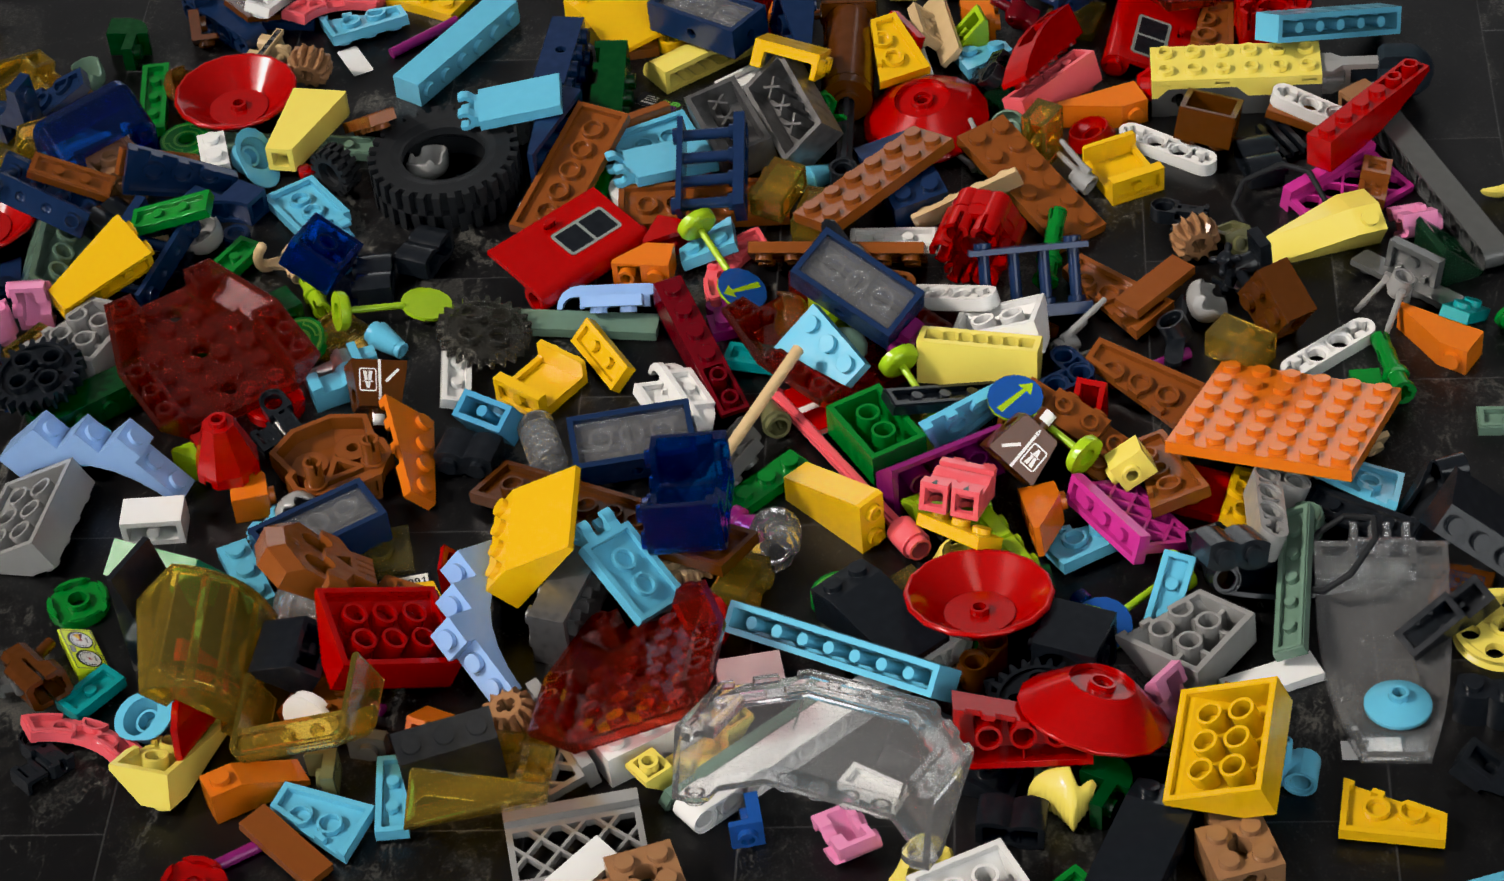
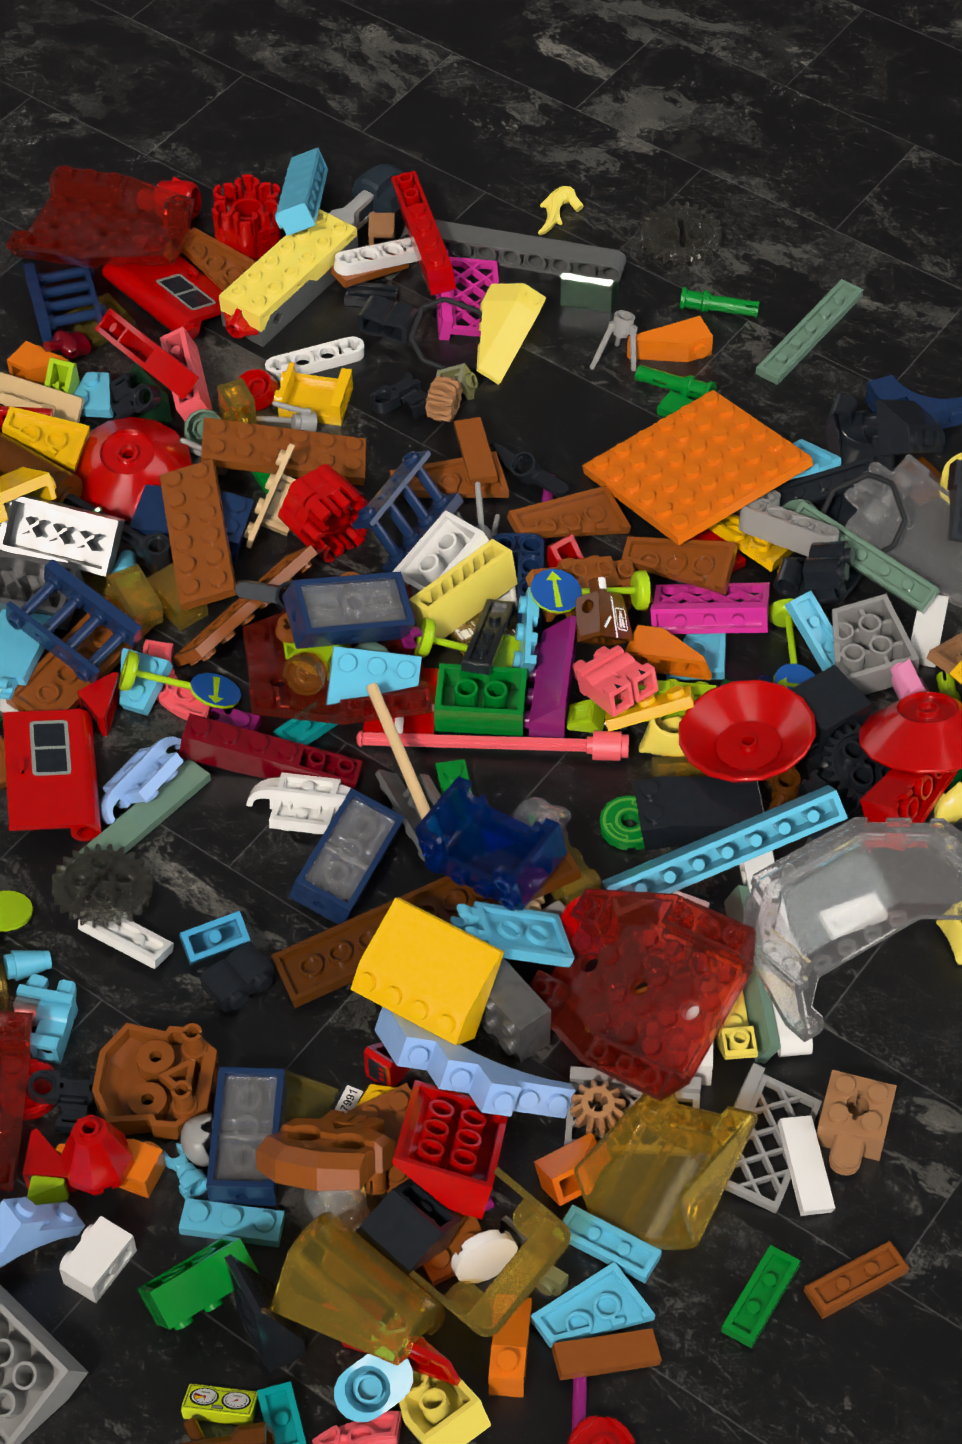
camera: 60 degrees left, 10 degrees up
(78, 616) = (149, 1395): green tile -> none
(372, 379) = (99, 998): reddish brown torso -> none
(414, 448) = (195, 1008): orange wing -> none
(452, 744) = (623, 1170): black slope -> none
(542, 441) = (277, 921): clear piece -> none
(544, 381) = (192, 880): yellow panel -> none
(603, 355) = (204, 822): yellow plate -> none
(645, 264) = (124, 733): orange slope -> none
(750, 829) = (835, 1008): blue bracket -> none
(775, 420) = (382, 753): olive cone -> none
(839, 504) = (537, 766): yellow slope -> none
(845, 834) = (899, 960): bright pink cylinder -> none
(894, 234) = (257, 561): white tile -> none
(960, 297) = (370, 563): white beam -> none
(1053, 233) = (365, 476): green pin -> none
(1116, 104) = (242, 353): orange slope -> none
(1129, 464) = (666, 572): light yellow brick -> none
(1203, 303) = (515, 436): light grey hair -> none
(1208, 119) = (319, 320): reddish brown piece -> none
(1240, 341) = (576, 444): clear yellow brick -> none
(1244, 265) = (507, 389): black piece -> none
(1277, 298) = (571, 395): reddish brown piece -> none
(1354, 334) = (622, 406): white beam -> none
(1375, 177) = (476, 273): dark orange slope -> none
(1407, 214) = (542, 280): bright pink cylinder -> none
(1422, 263) = (587, 315): dark grey bracket -> none
(1465, 310) = (663, 313): teal plate -> none

